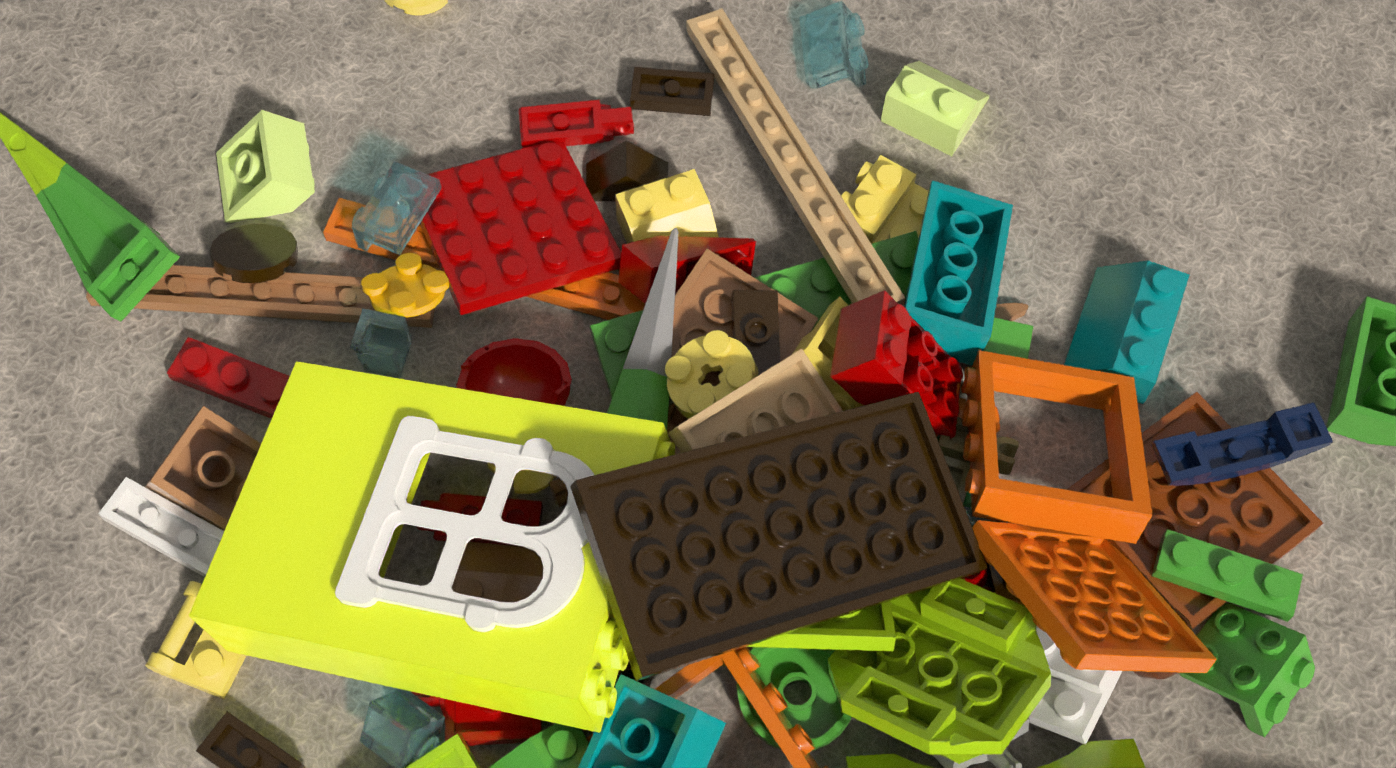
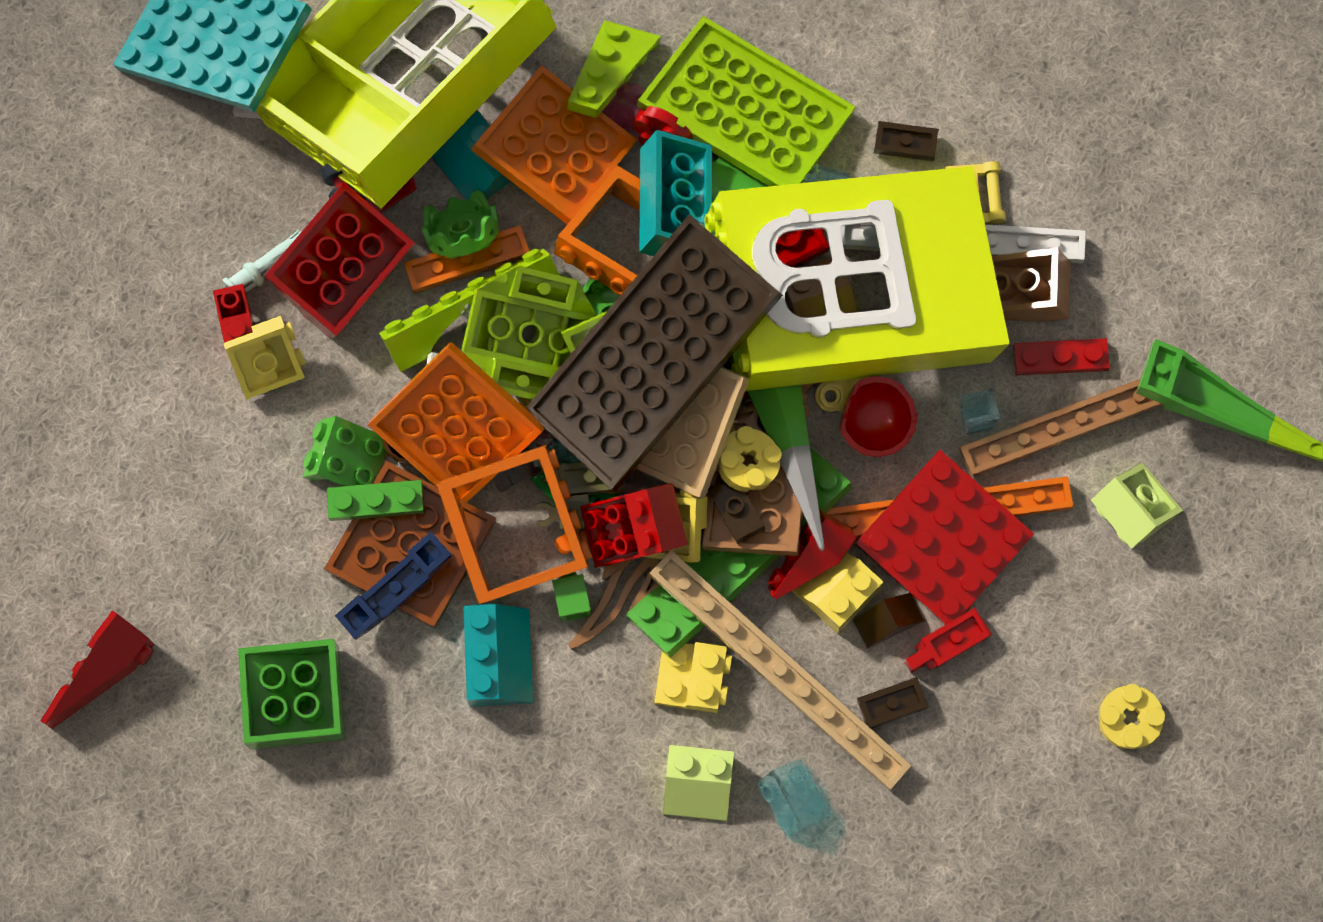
camera: 160 degrees right, 10 degrees up
(254, 253) = (1103, 439): dark brown tile -> none
(395, 208) = (1022, 499): clear light blue bracket -> none
(406, 288) = (985, 452): yellow piece -> none
(958, 268) = (626, 628): teal slope -> none

